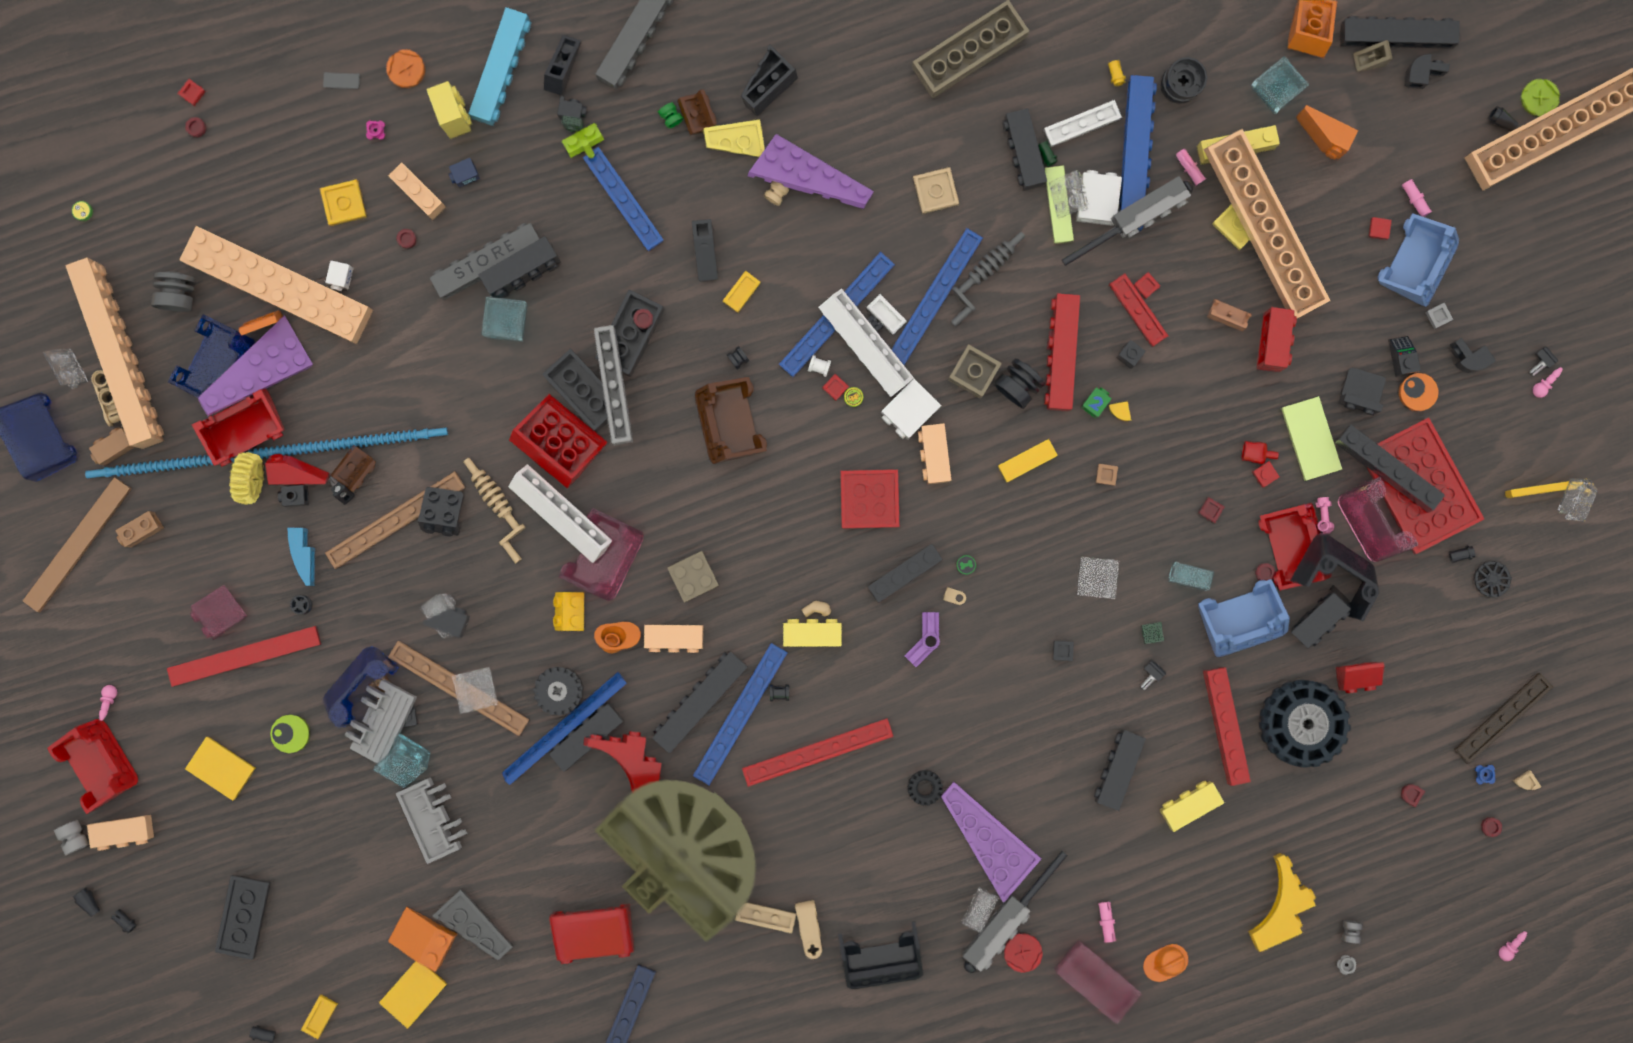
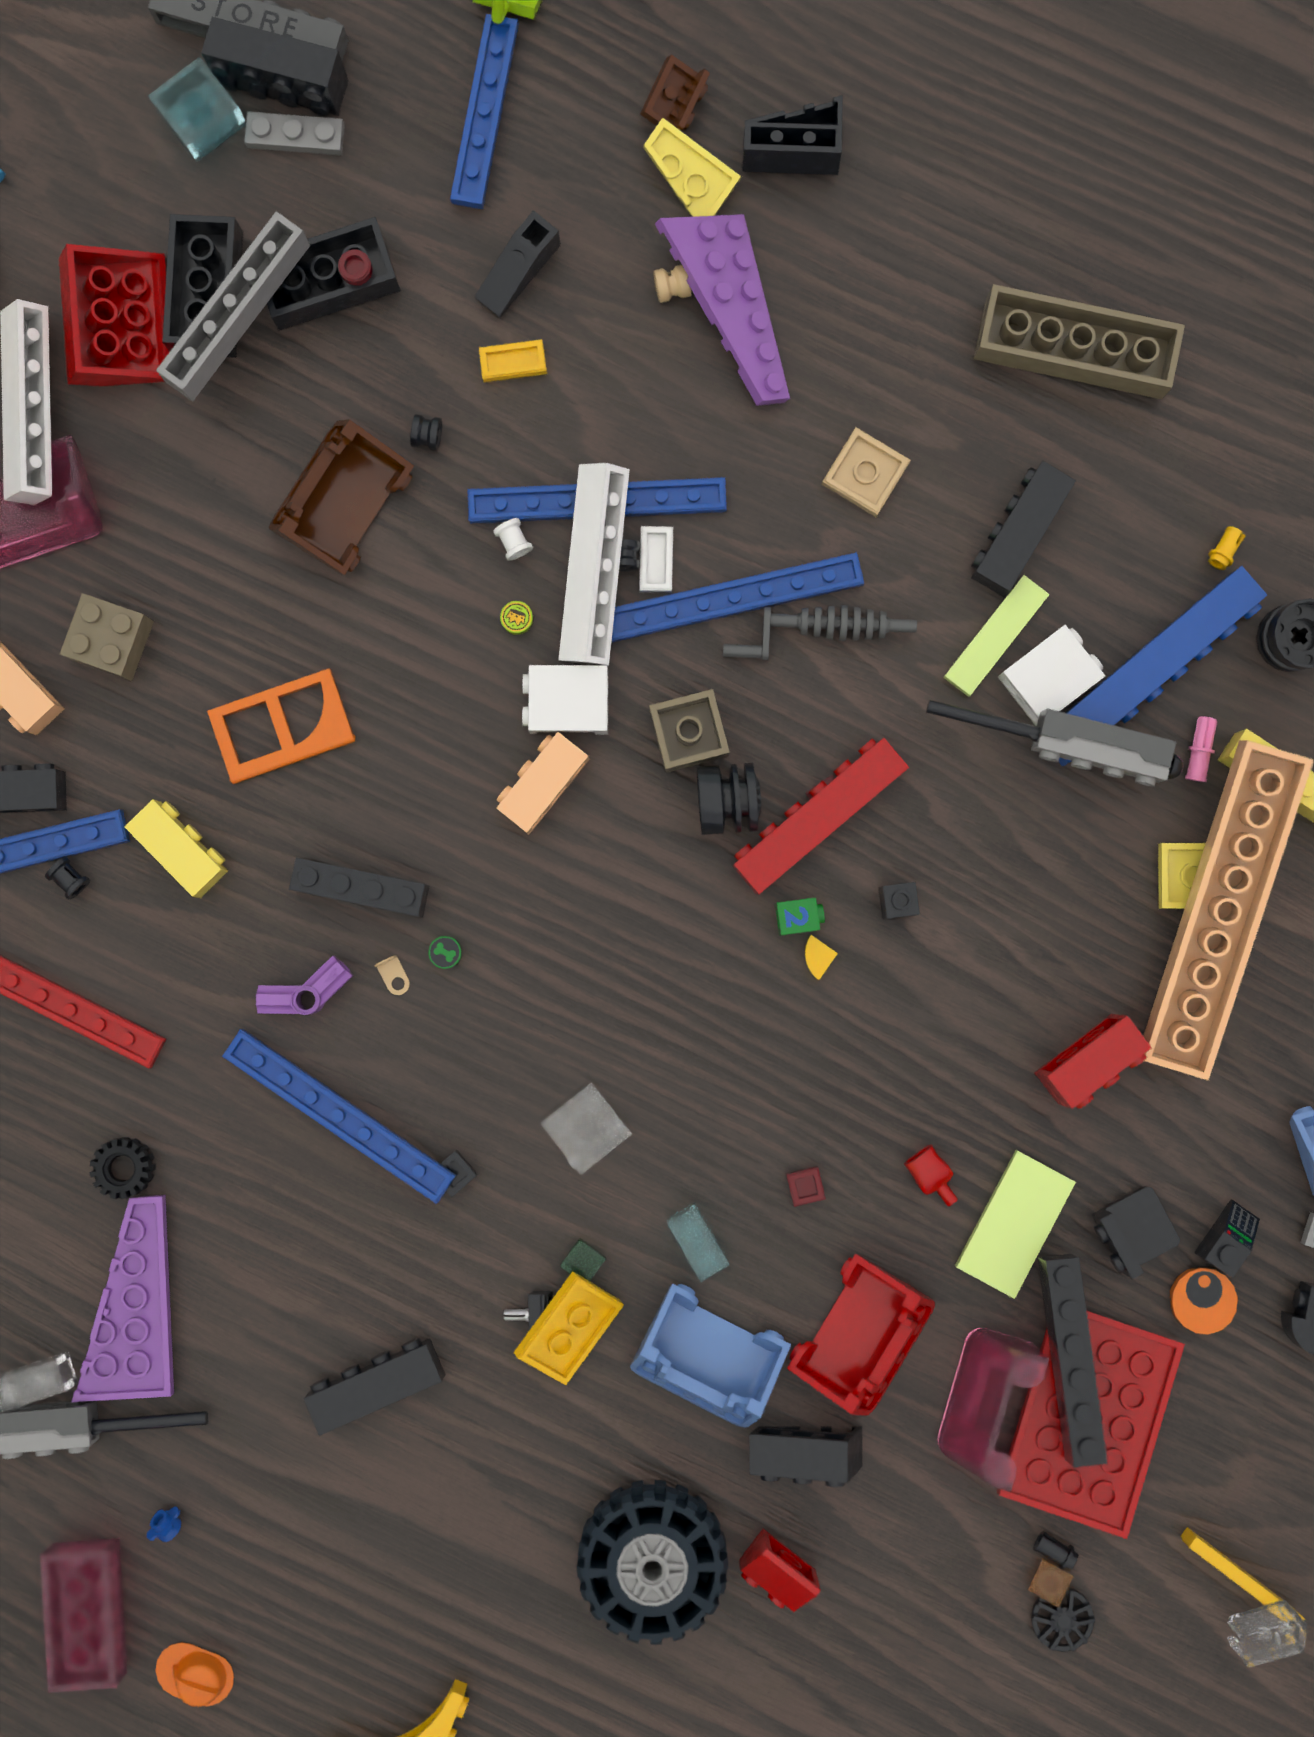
camera: 45 degrees right, 0 degrees up
(551, 288) = (294, 133): none -> light grey plate
(670, 115) = (639, 72): green wheel -> none
(817, 606) = (217, 822): tan arm -> none
(825, 523) = (330, 733): none -> orange window
(835, 387) = (507, 584): red tile -> none
(869, 499) = (410, 757): red plate -> none
(992, 675) = (339, 1116): none -> blue tile
(1023, 952) = (37, 1485): red tile -> none
(1027, 460) = (645, 902): yellow tile -> none
(1047, 154) = (1044, 561): dark green pin -> none
(1068, 194) = (1019, 631): clear hinge -> none
(1082, 123) = (1123, 567): white plate -> none
(1092, 913) = (164, 1525): none -> blue plate
(1106, 474) = (722, 1015): medium nougat plate -> none
(1107, 922) = (172, 1553): bright pink pin -> none
(1138, 310) = (963, 858): red tile -> none
(1146, 285) = (1003, 838): red tile -> none
(1175, 665) = (568, 1328): none -> yellow tile
(1191, 805) = (415, 1518): light yellow brick -> none
(1226, 726) = (555, 1467): red brick -> none
(1229, 315) = (1066, 974): nougat hinge -> none
(1265, 474) = (915, 1210): red plate -> none
(1265, 572) = (794, 1327): dark red tile -> none
(1324, 525) = (924, 1345): bright pink bar -> none
(1324, 556) = (880, 1386): black windscreen -> none
(1472, 569) = (1050, 1583): none -> clear orange tile

